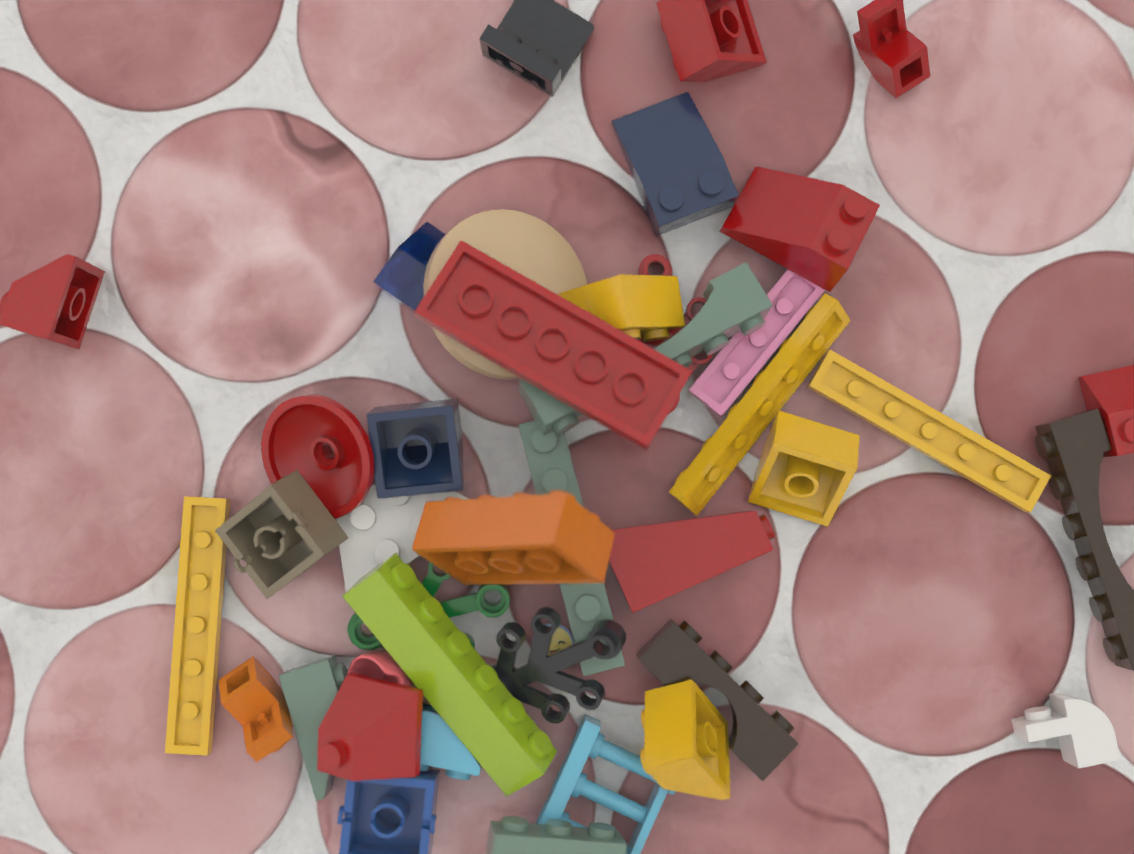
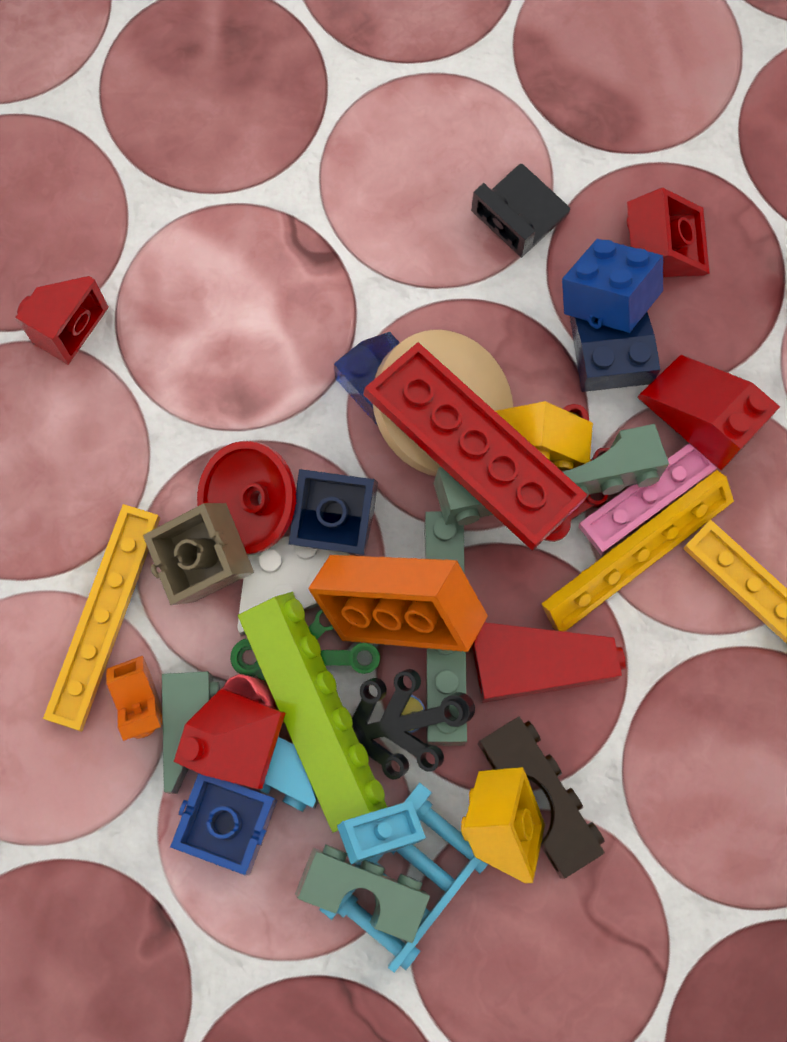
camera: 15 degrees right, 10 degrees down
(558, 790) = (381, 832): none -> medium azure plate
(663, 110) = (613, 285): none -> blue brick
(804, 468) = (665, 616): yellow slope -> none

